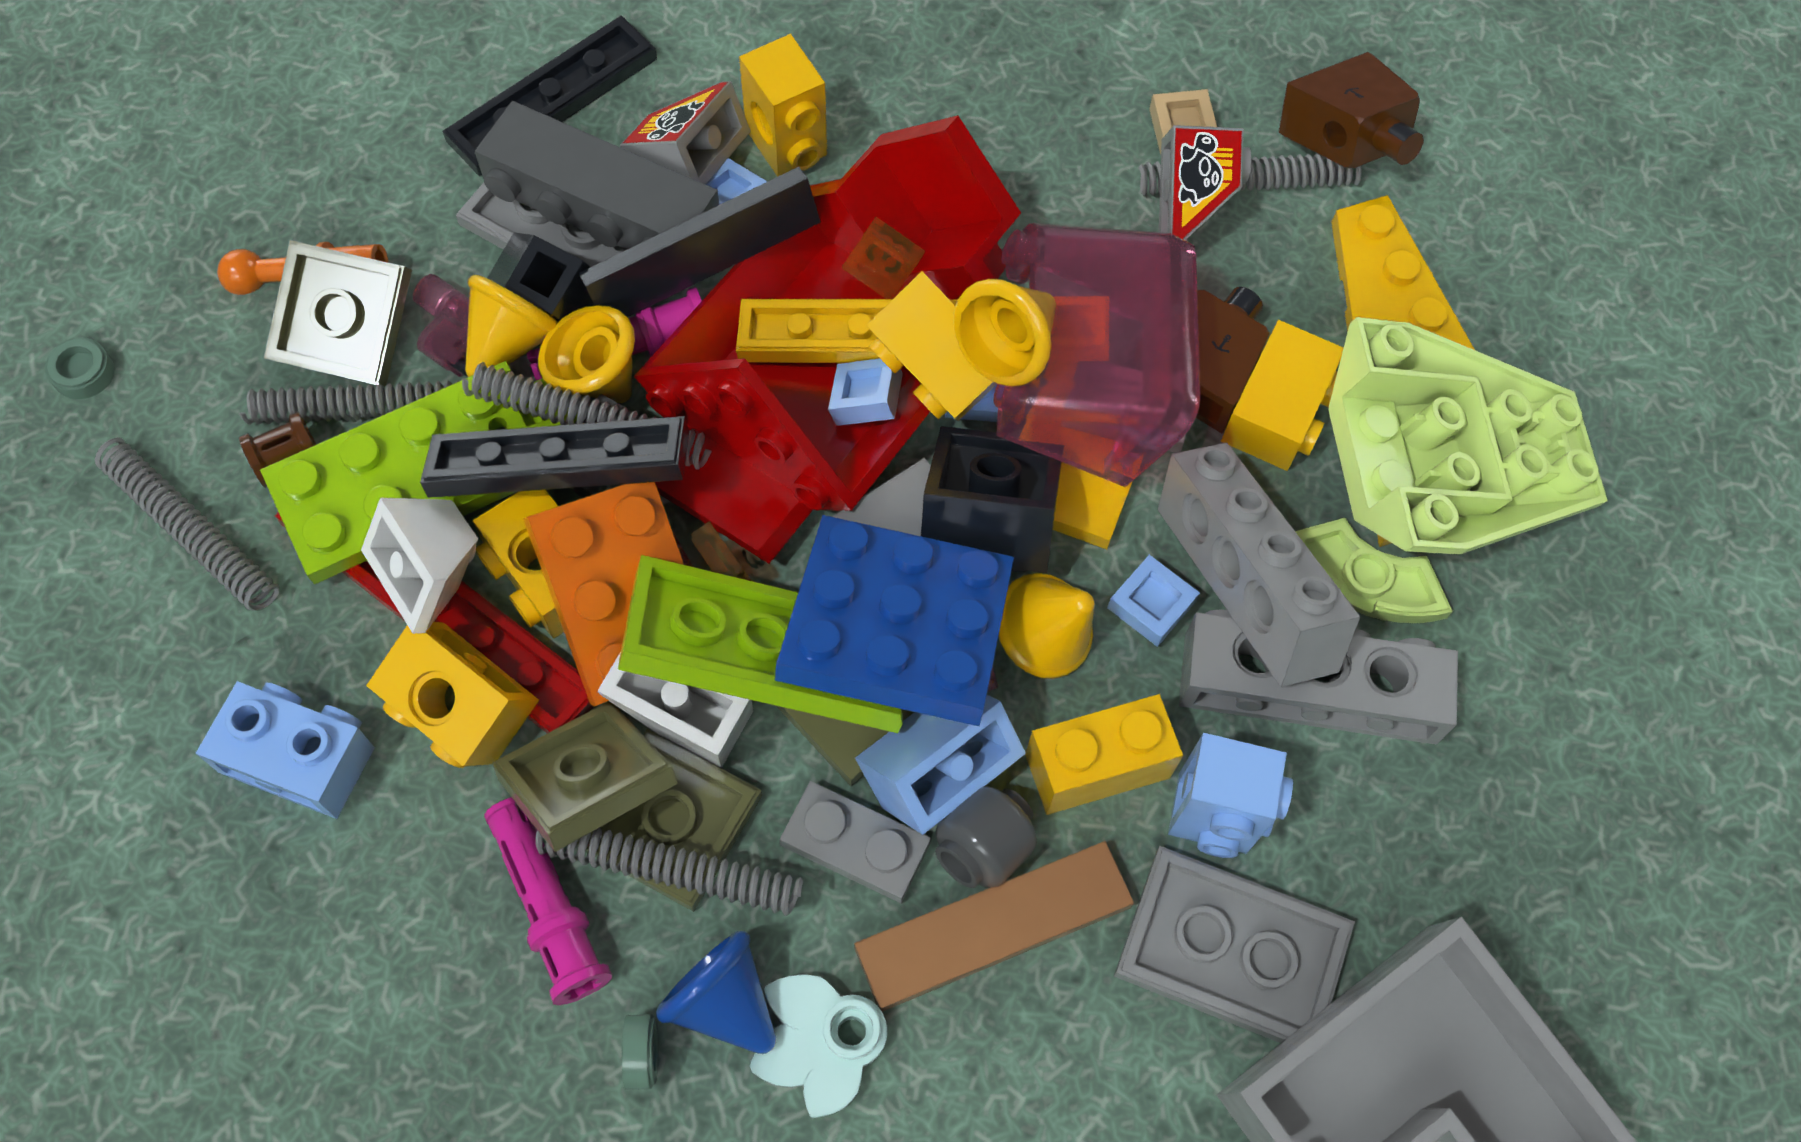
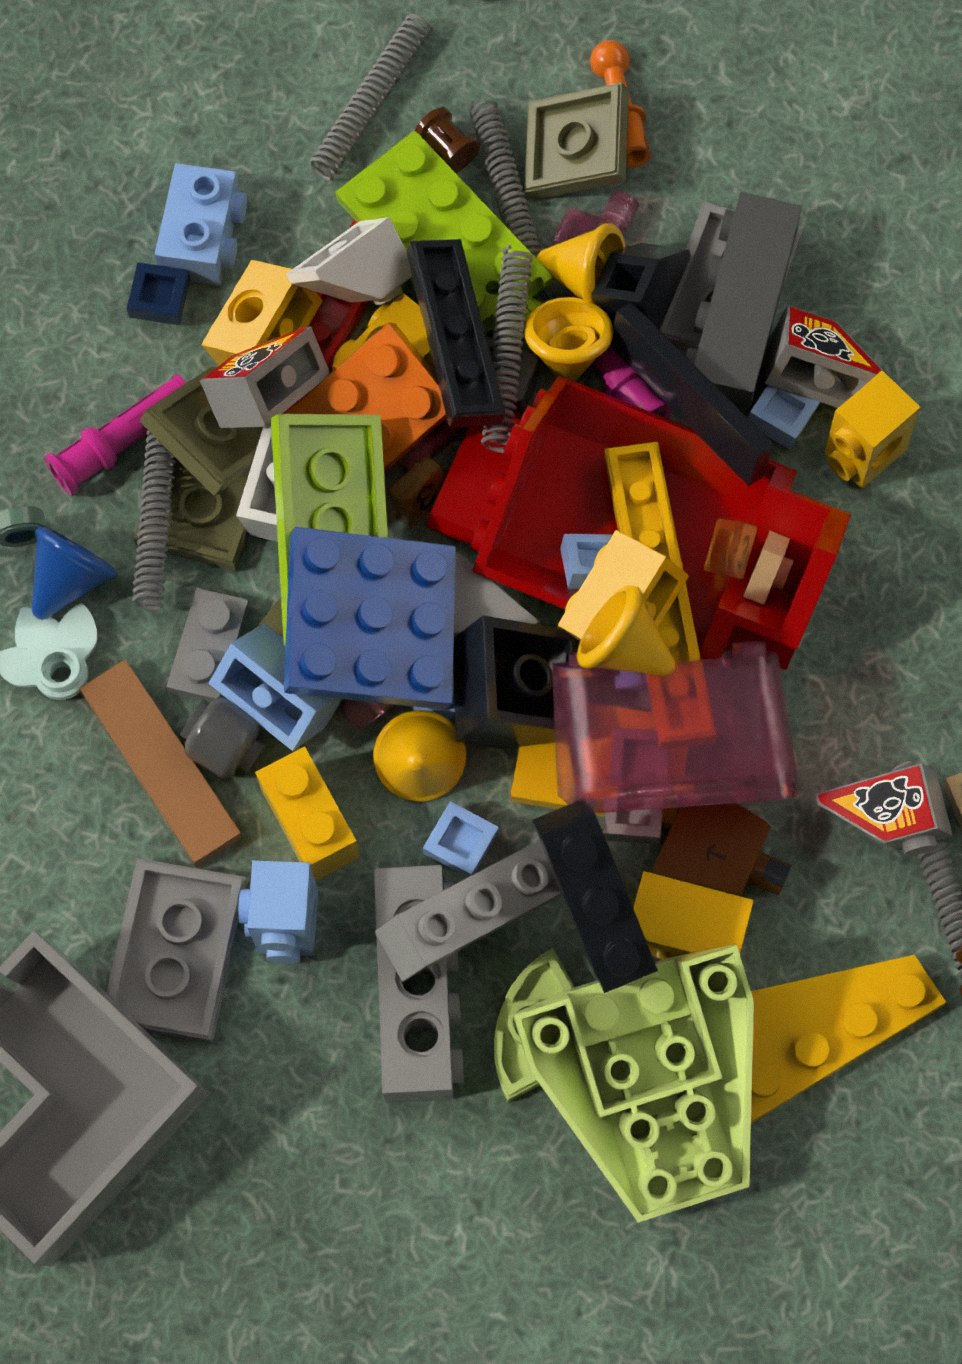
camera: 85 degrees right, 5 degrees up
(364, 818) = (158, 293): none -> dark blue plate
(551, 686) = (265, 379): none -> light grey slope
(561, 84) = (865, 245): black tile -> none
(920, 223) = (770, 568): none -> tan plate
(1284, 435) = (595, 895): none -> black brick

